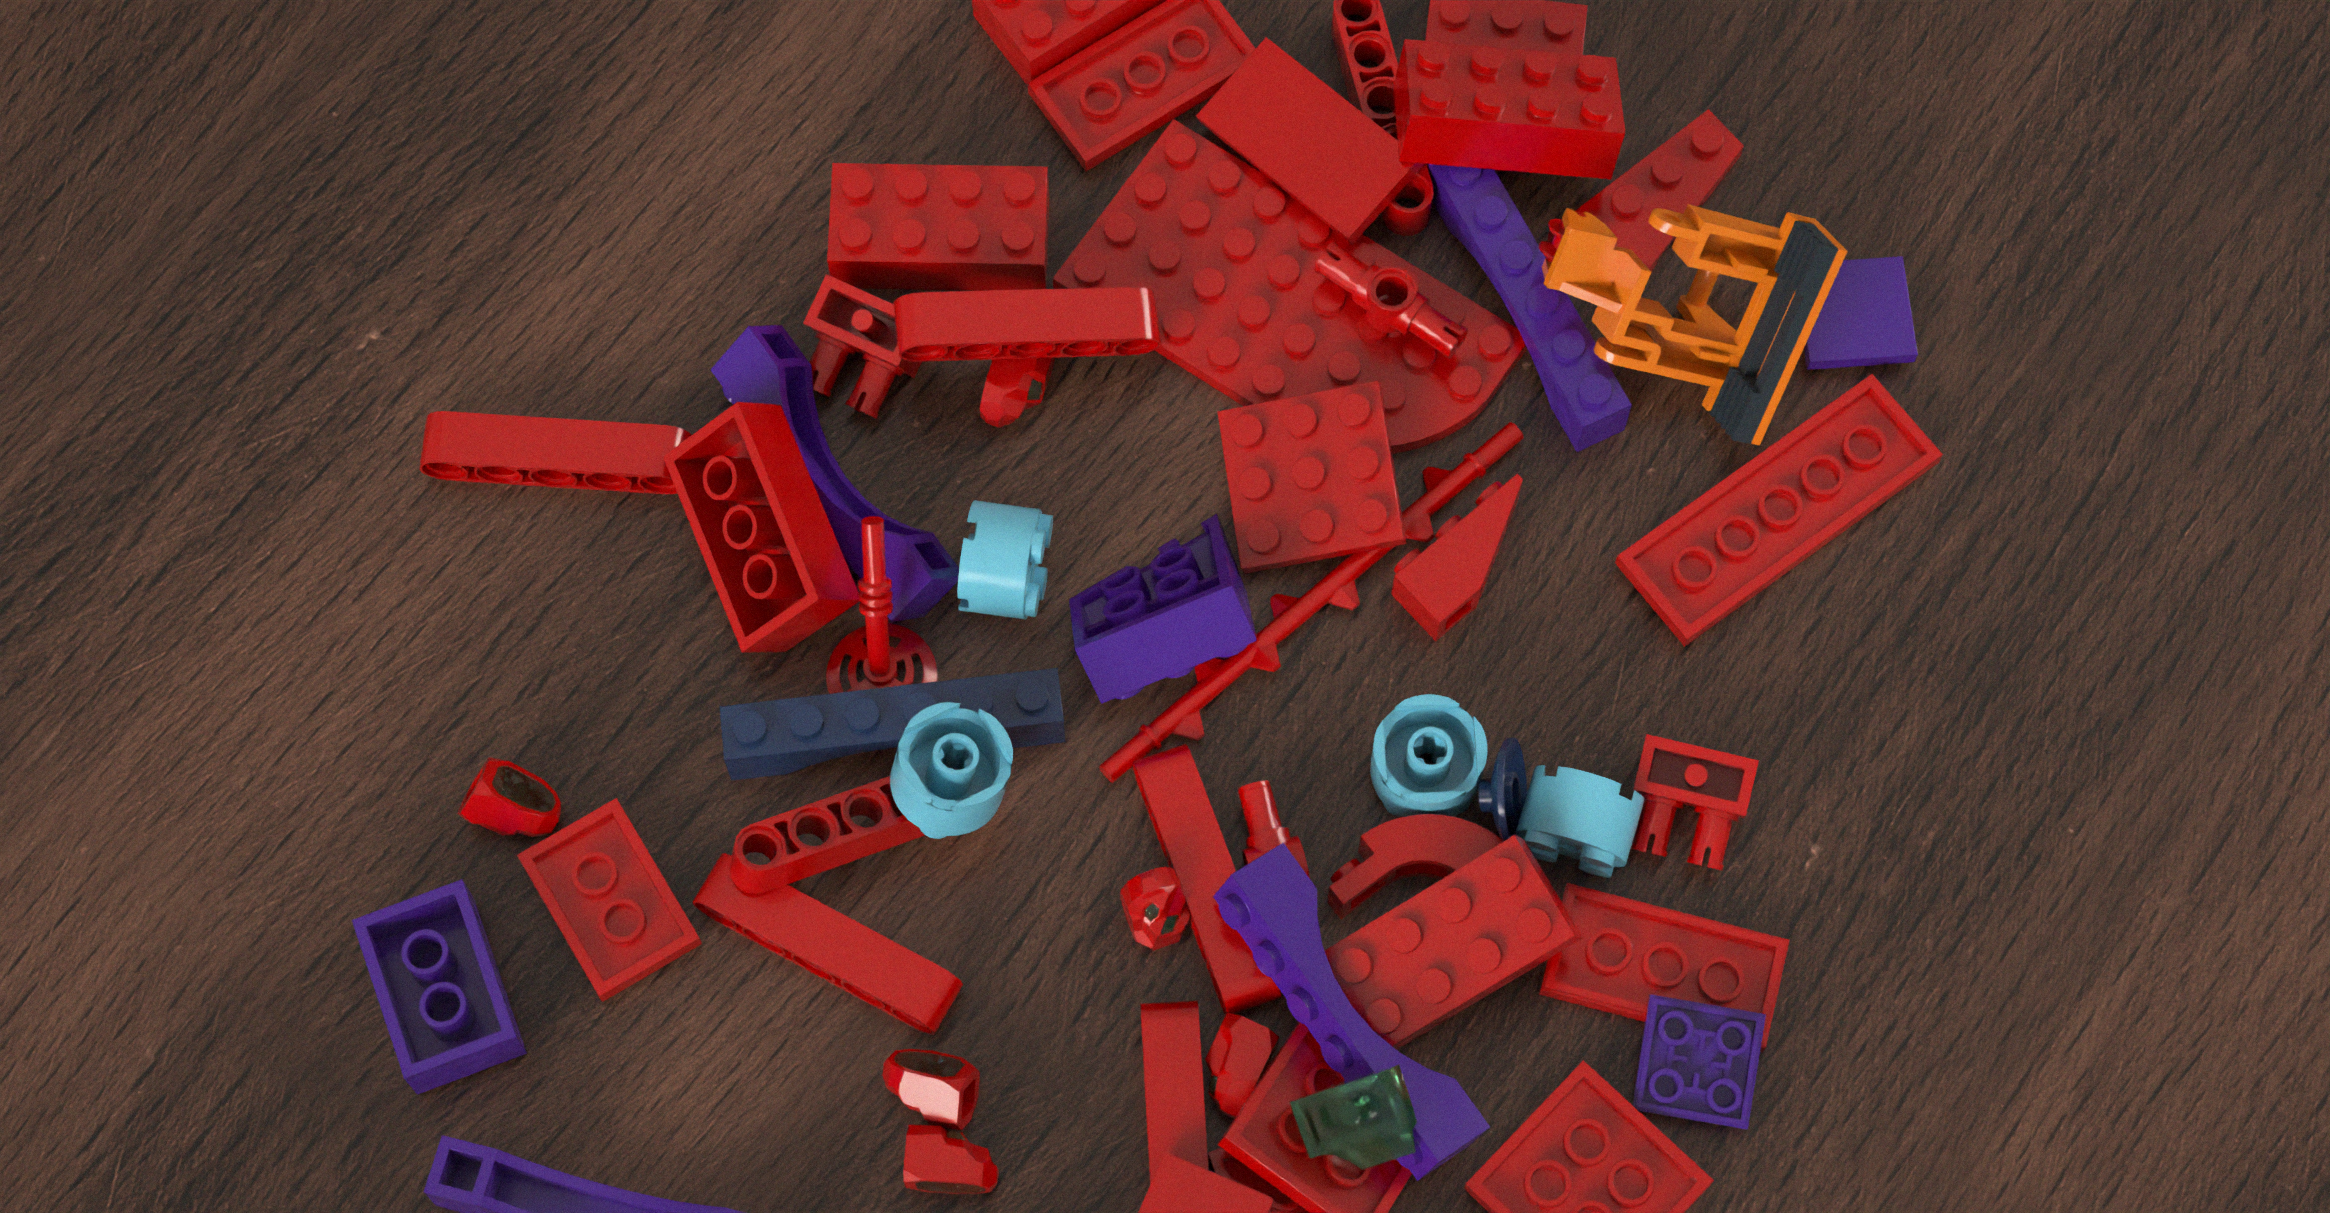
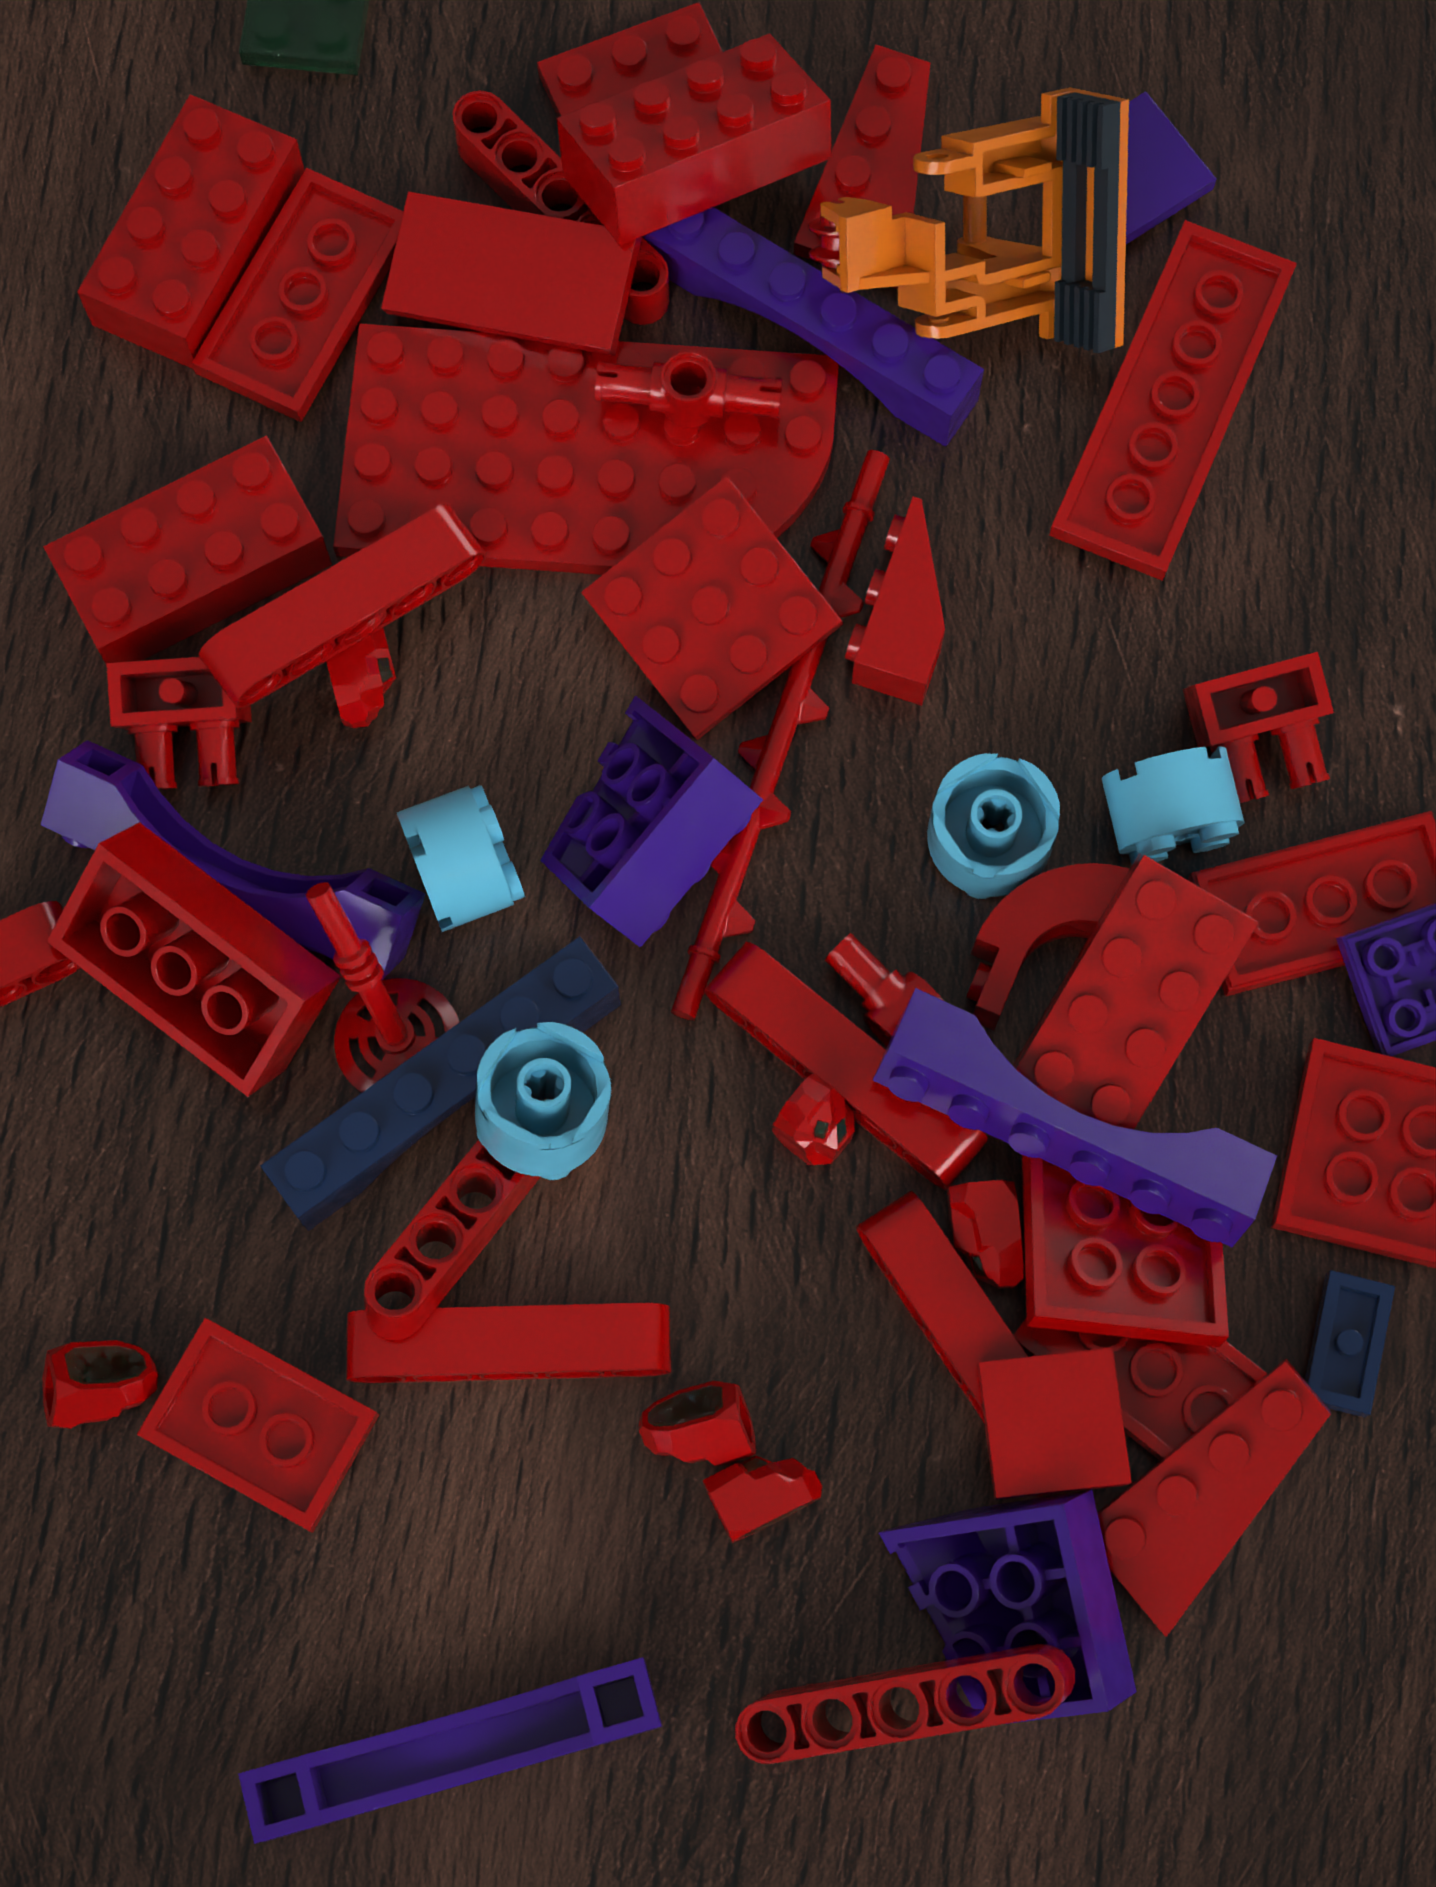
camera: 30 degrees left, 5 degrees up
(439, 987) = (137, 1618): dark purple brick -> none
(1359, 1119) = (1153, 1219): clear green slope -> none
(1506, 789) = (1085, 821): dark blue dish -> none

